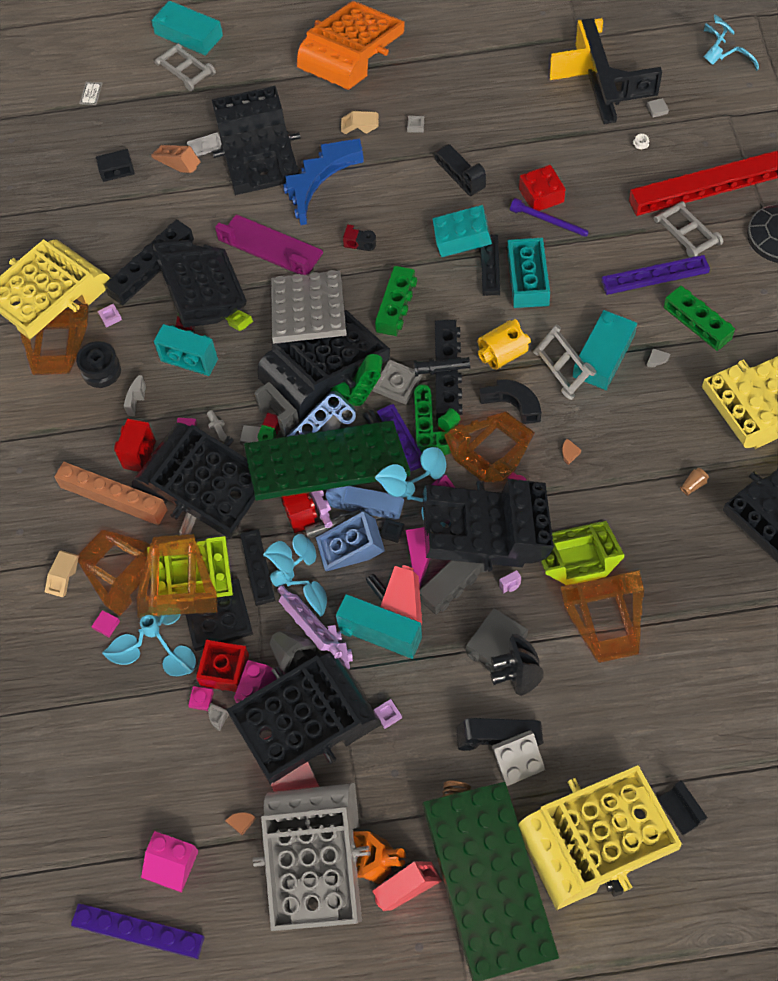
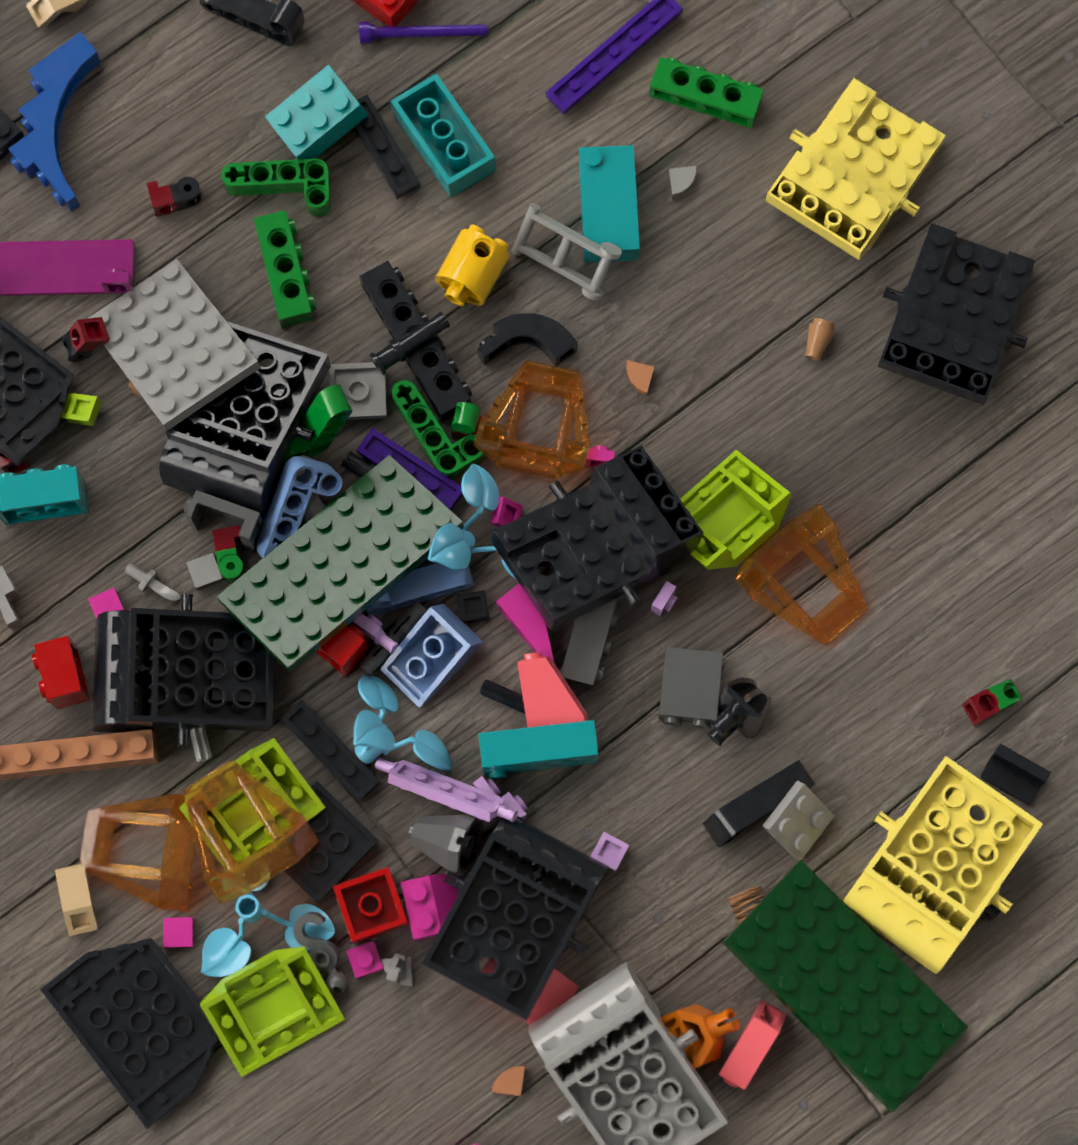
camera: 35 degrees left, 15 degrees up
(47, 663) = (137, 1024): none -> black plate
(126, 695) = (270, 1008): none -> lime slope
(177, 680) = (323, 952): none -> dark grey piece
(213, 711) = (396, 968): none -> light grey tile
(262, 282) = (84, 338): none -> dark red leg
(425, 255) = (277, 185): none -> green beam
(691, 752) = (991, 701): none -> leg

